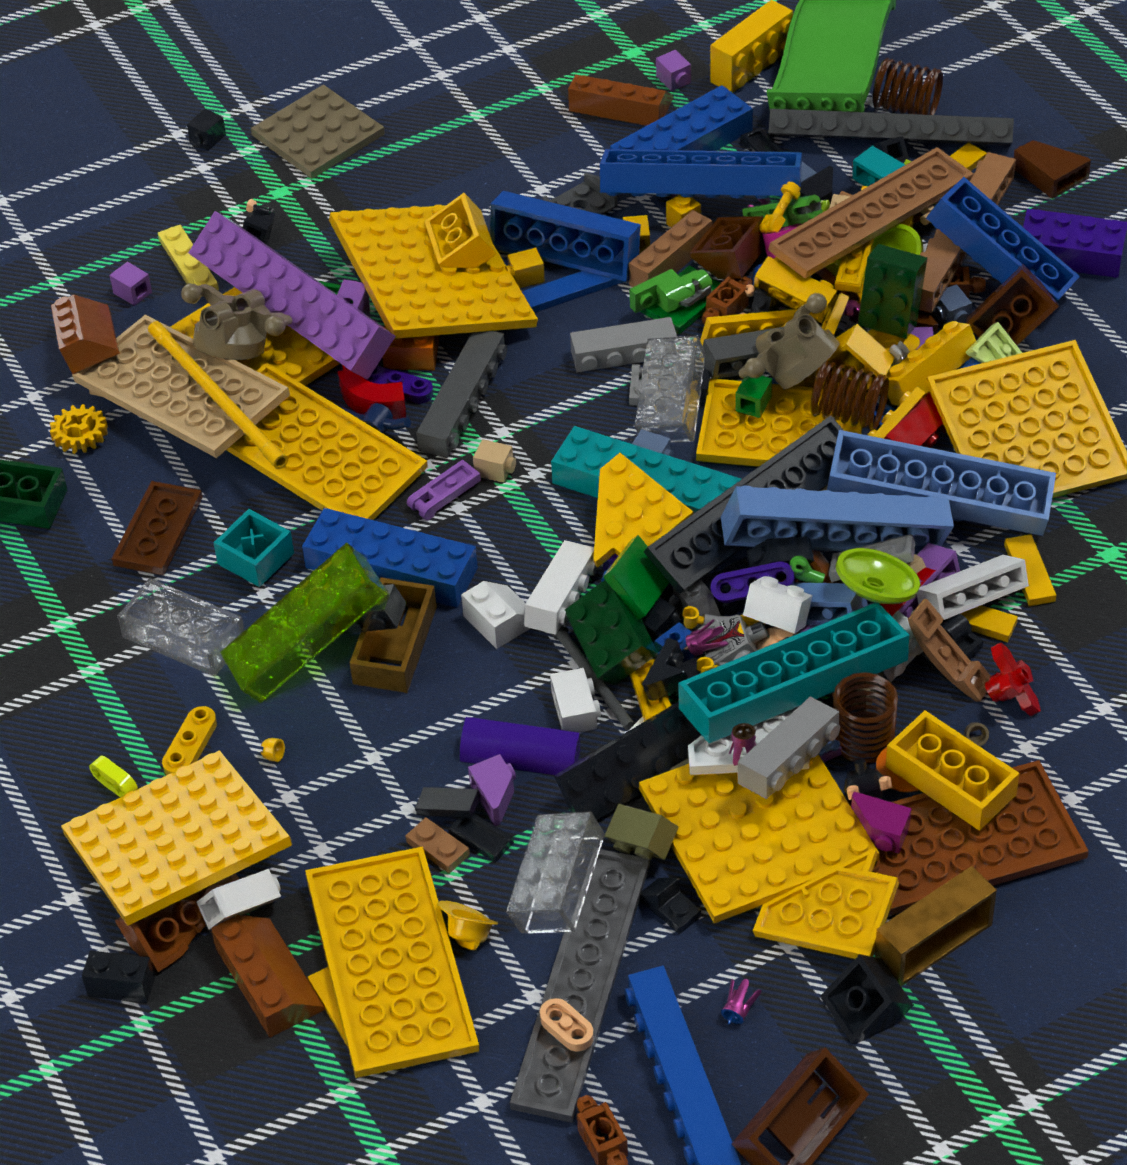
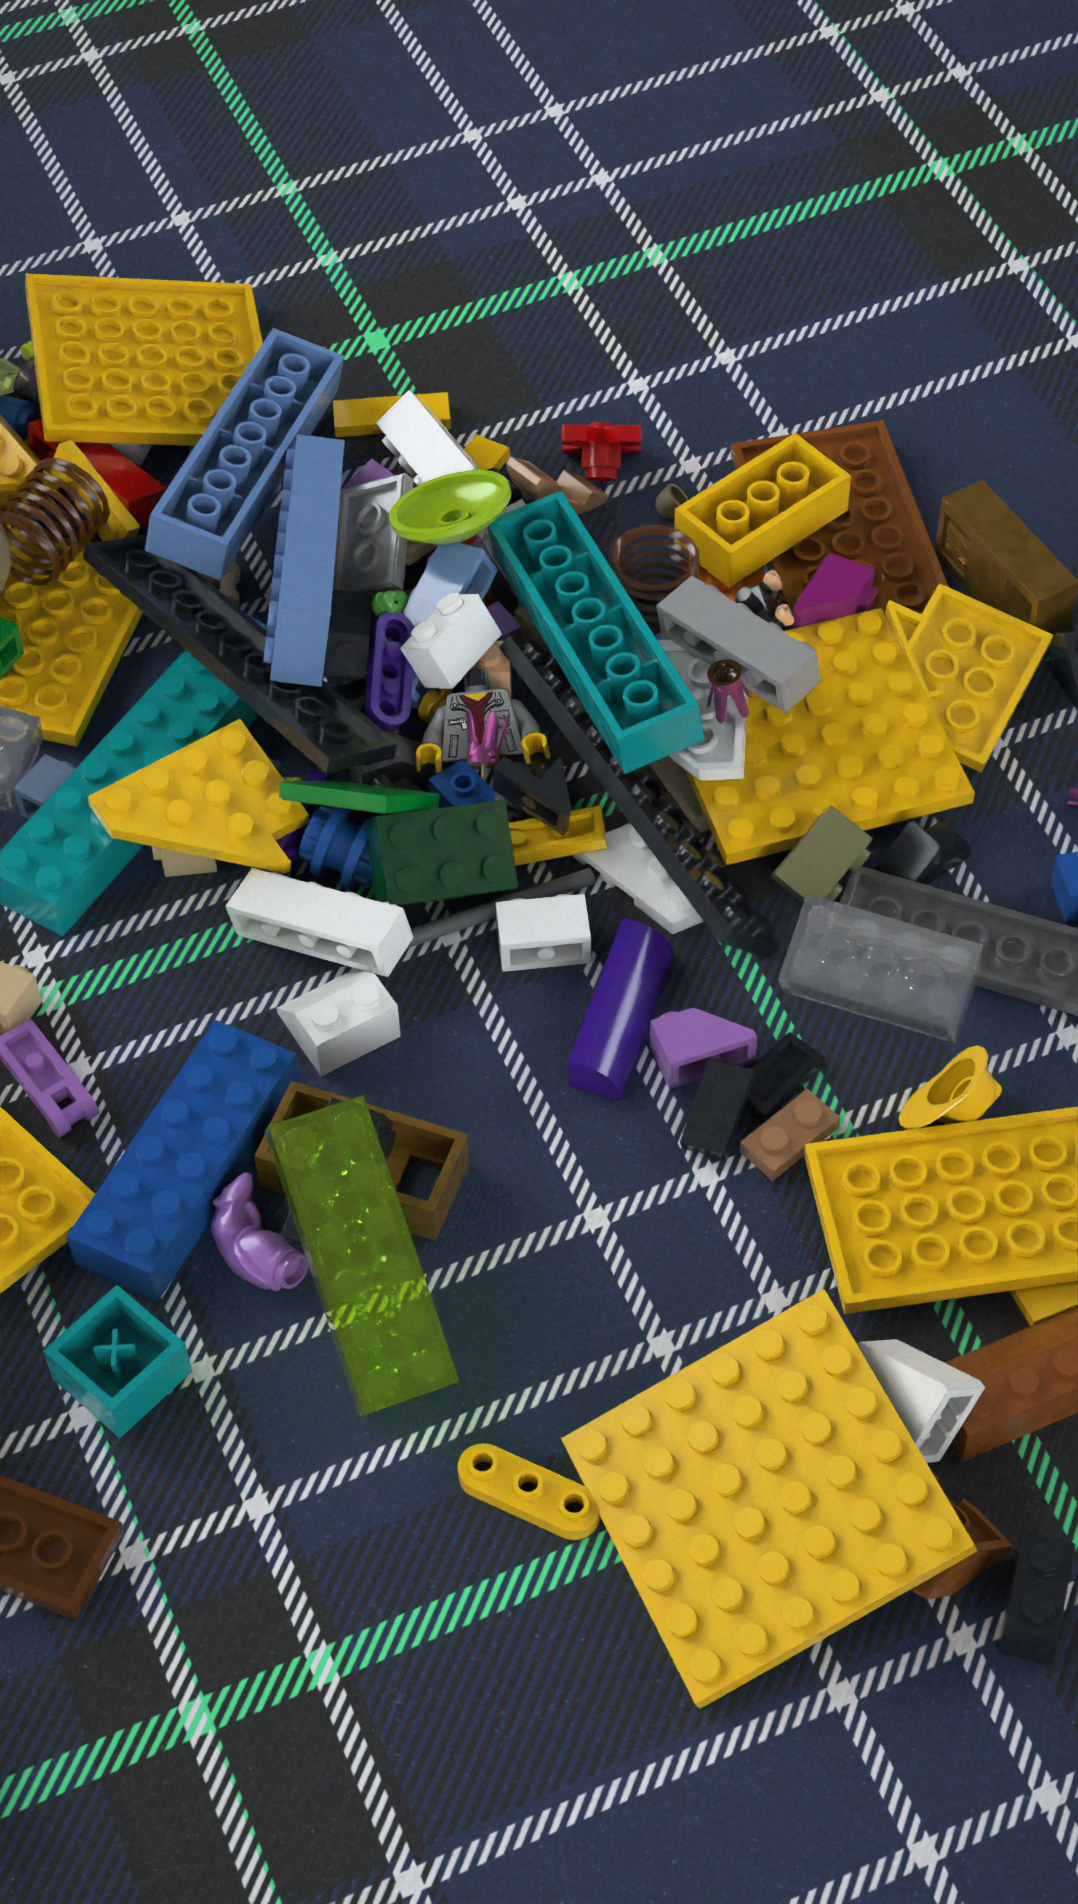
camera: 85 degrees left, 5 degrees up
(112, 776) = (599, 1612): neon yellow beam -> none
(179, 626) = (280, 1485): clear brick -> none
(273, 749) = (570, 1356): yellow hinge -> none

